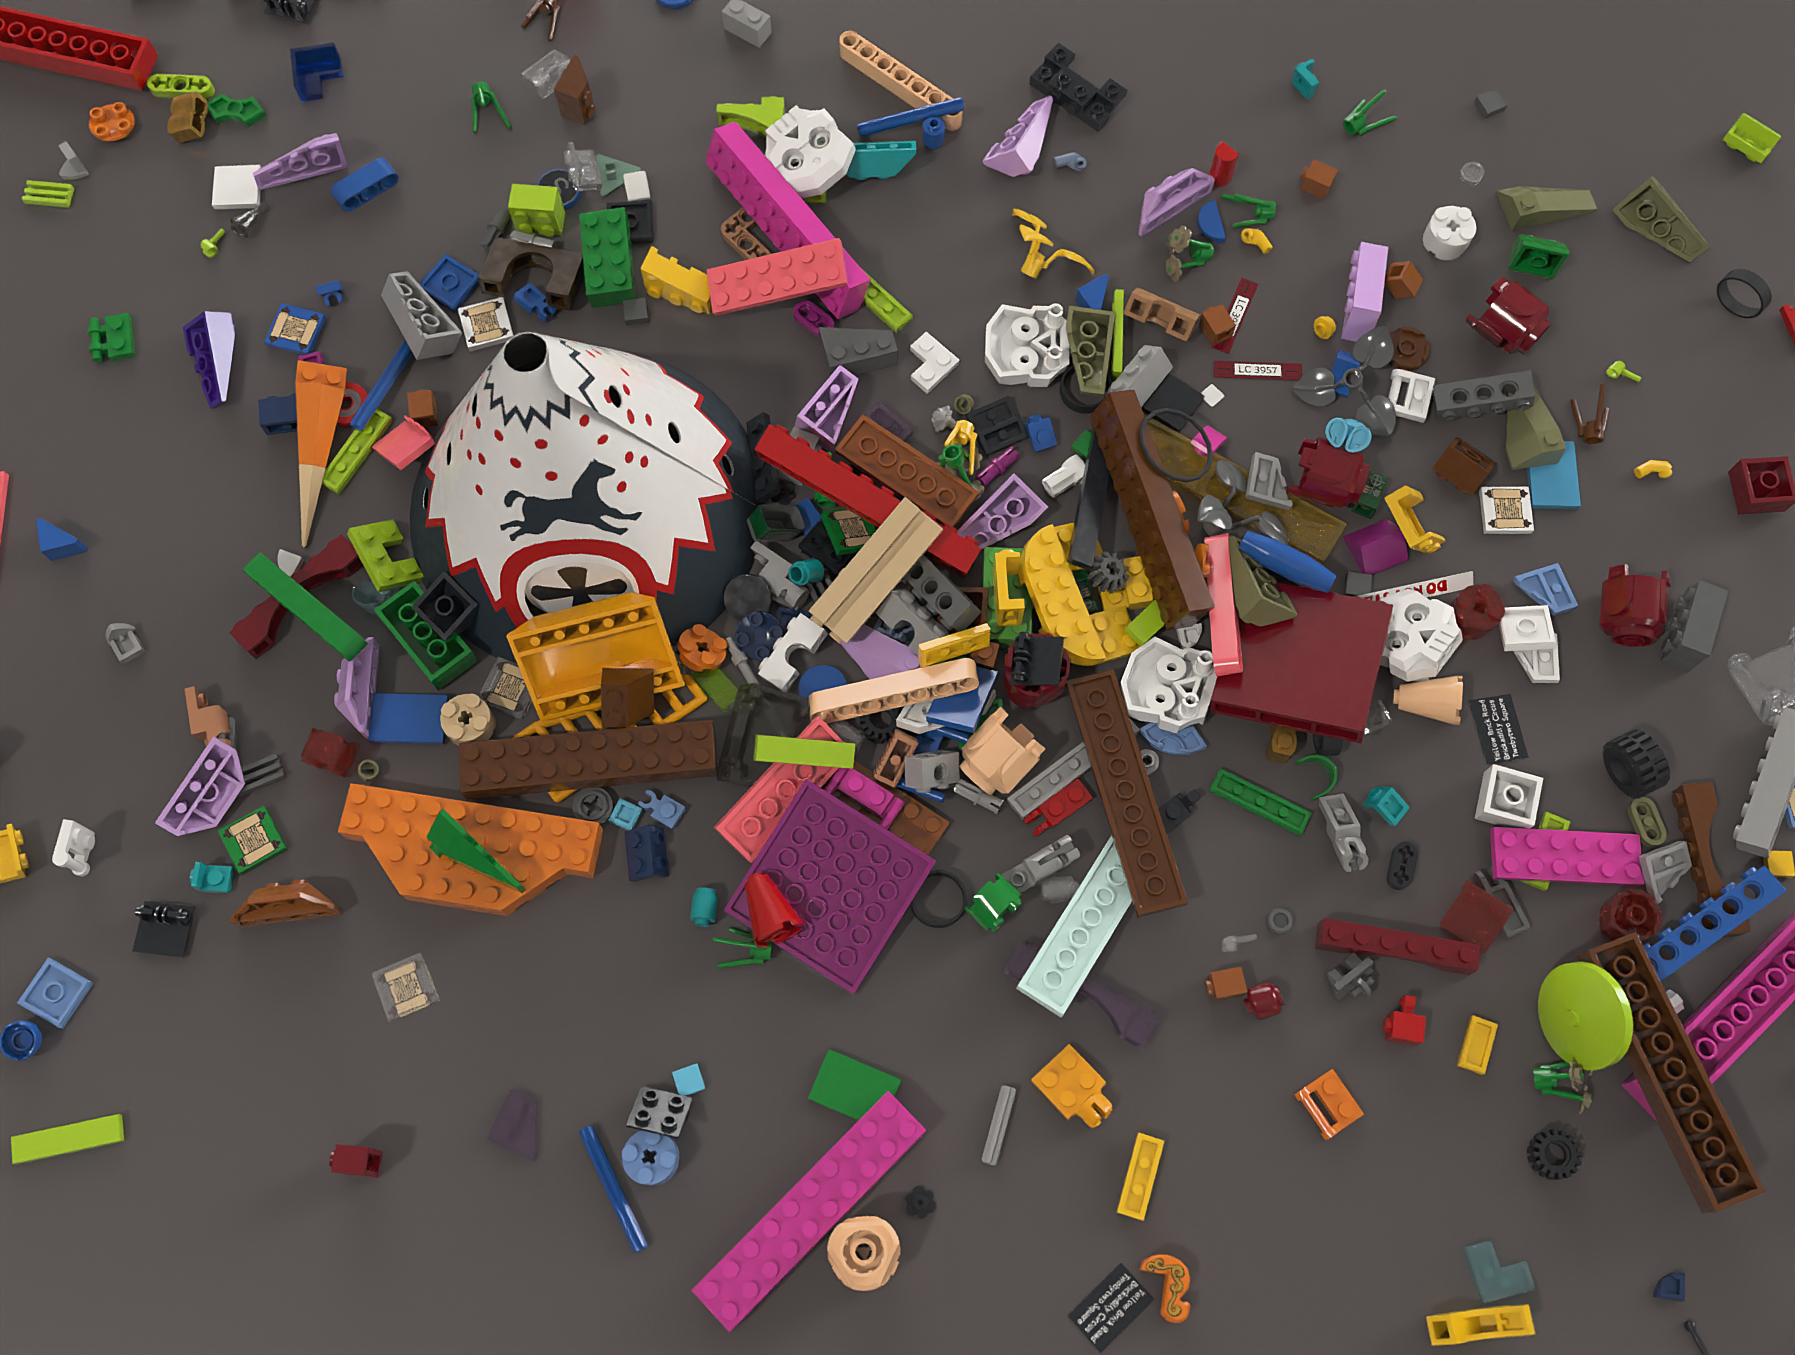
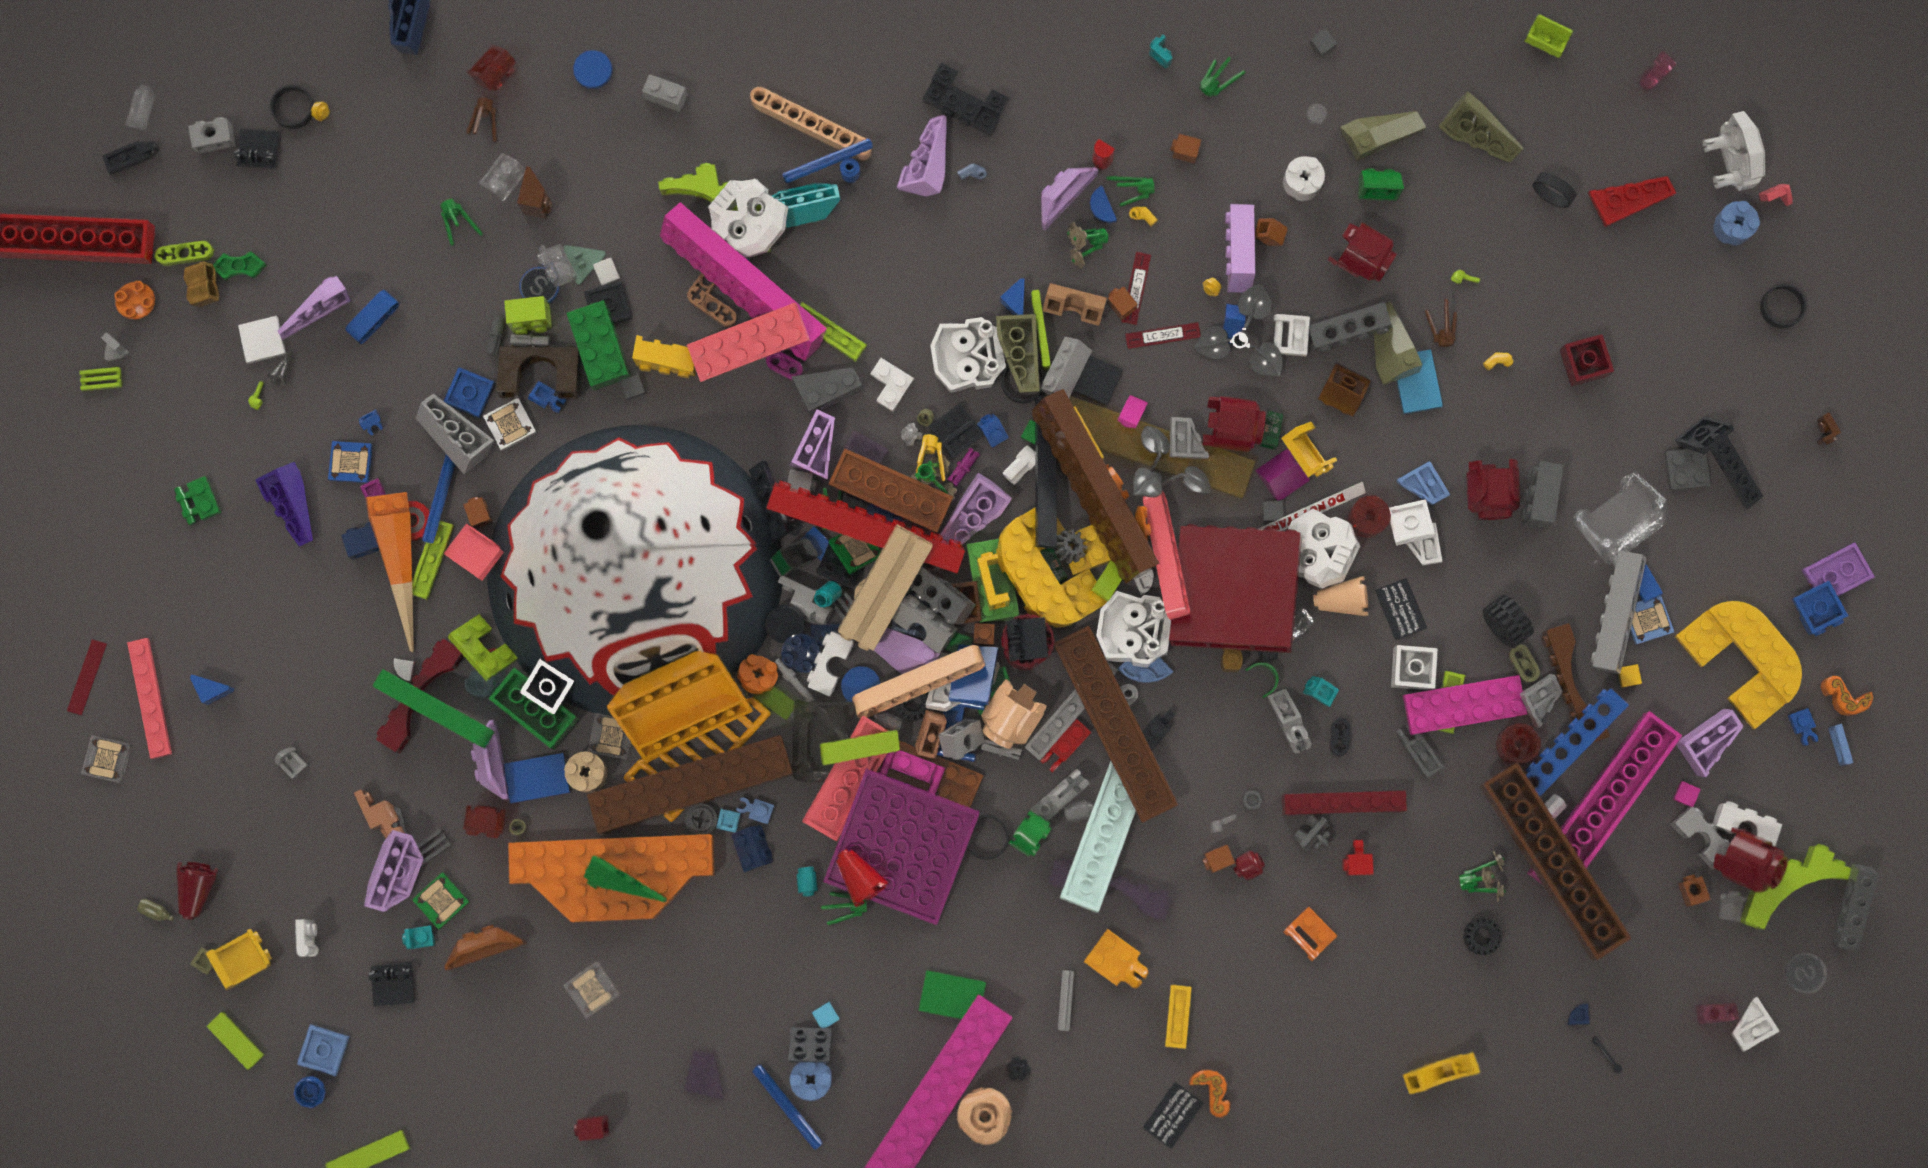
camera: 10 degrees left, 10 degrees up
(312, 66) = (294, 213): clear blue panel -> none
(626, 695) = (709, 730): reddish brown slope -> none
(954, 645) = (959, 636): yellow tile -> none
(1035, 260) = (959, 269): yellow plant -> none
(1155, 465) = (1127, 413): black piece -> none
(1212, 395) = (1128, 365): white sticker -> none
(1255, 590) = (1189, 539): olive wedge -> none
(1260, 802) = (1222, 708): green tile -> none
(1287, 561) = (1211, 511): blue plate -> none
(1349, 431) = (1245, 385): medium azure piece -> none
(1410, 349) = (1284, 291): reddish brown tile -> none
(1476, 916) = (1401, 767): clear red bracket -> none
(1477, 1045) = (1415, 865): yellow tile -> none
(1491, 1279) = (1450, 1037): clear light blue tile -> none
(1506, 510) = (1383, 421): tile -> none
(1585, 1015) = (1489, 831): lime dish -> none

